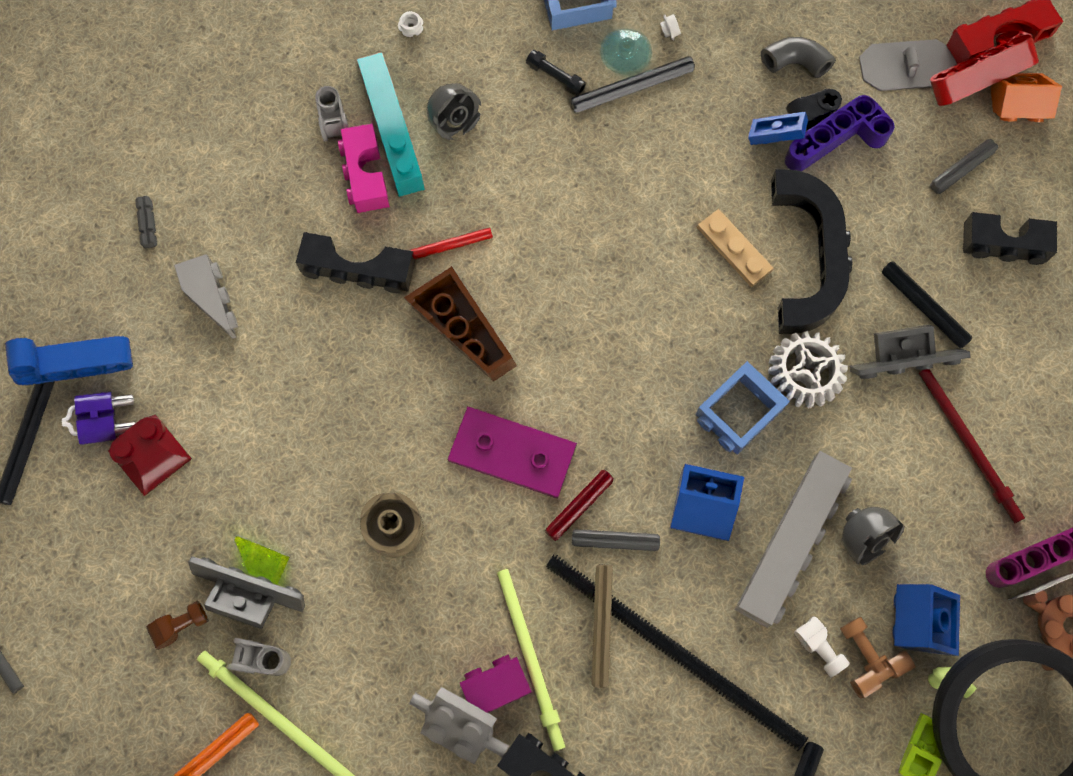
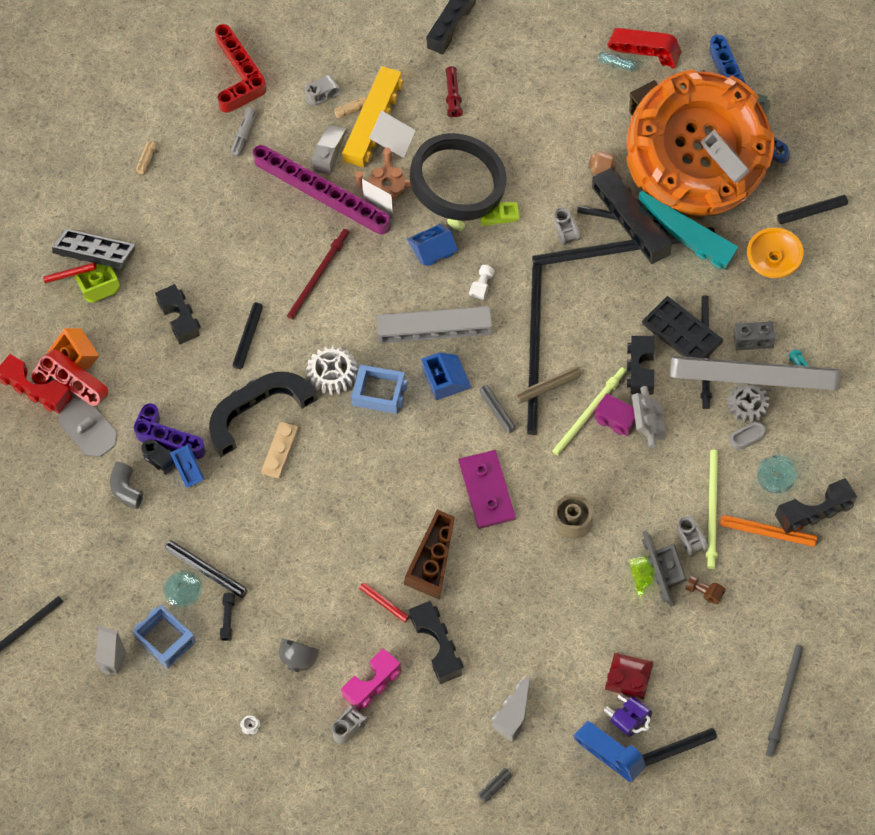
camera: 120 degrees left, 10 degrees down
(391, 124) = (328, 687): teal slope -> none
(579, 505) = (491, 437): dark red axle -> none
(670, 26) = (149, 570): white plate -> none
(872, 530) = (406, 291): dark grey cylinder -> none
(878, 668) = (472, 253): medium nougat bar -> none
(907, 349) = (287, 328): dark grey bracket -> none
(964, 166) = (142, 361): dark grey axle -> none

